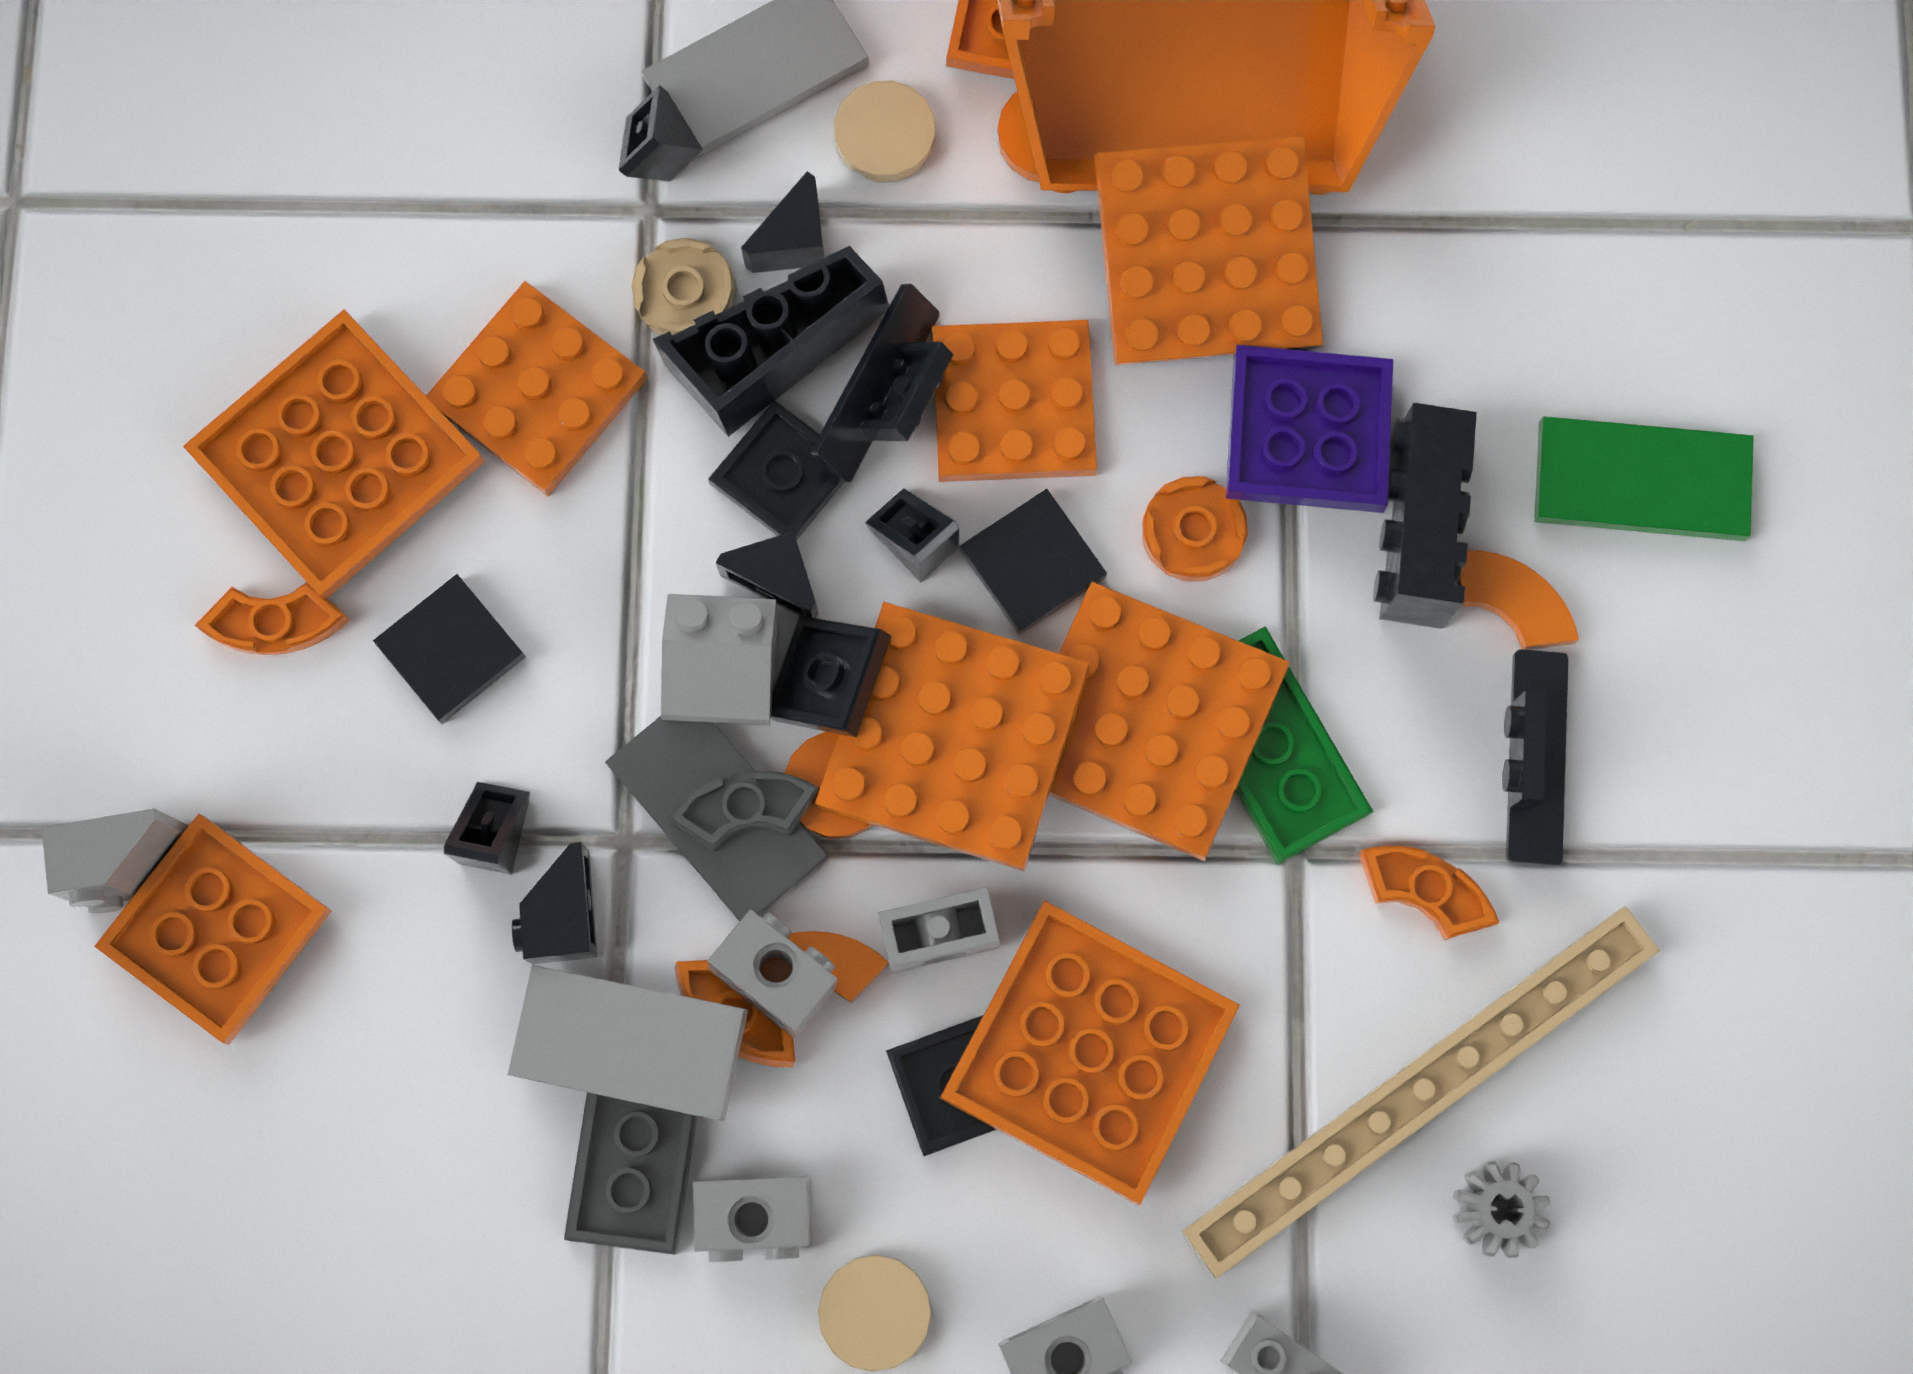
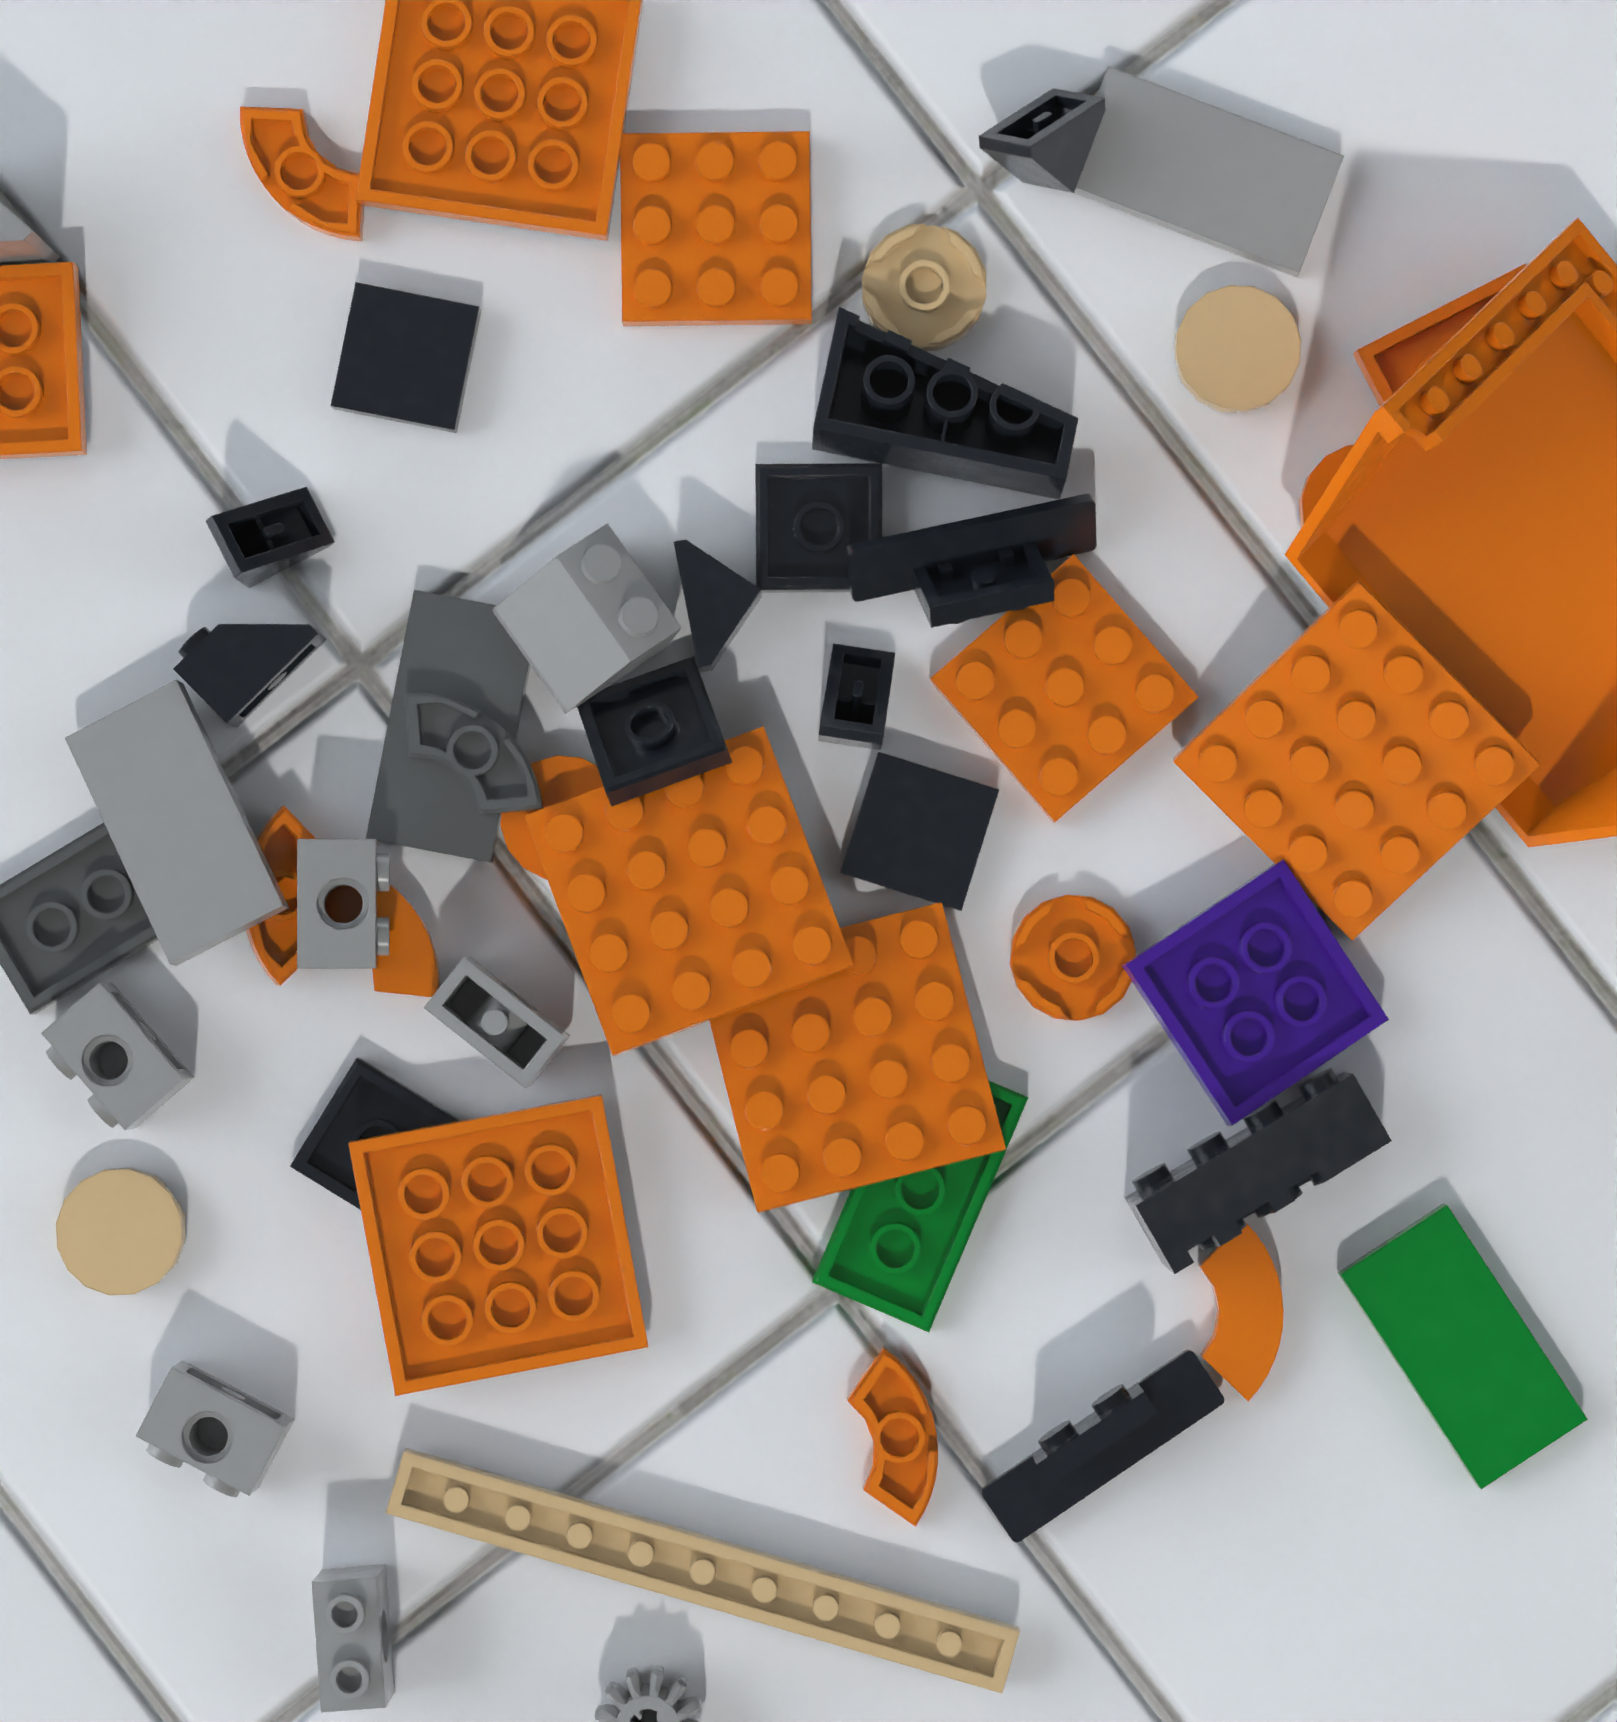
camera: 55 degrees right, 10 degrees up
(790, 232) = (1059, 346): black slope -> none

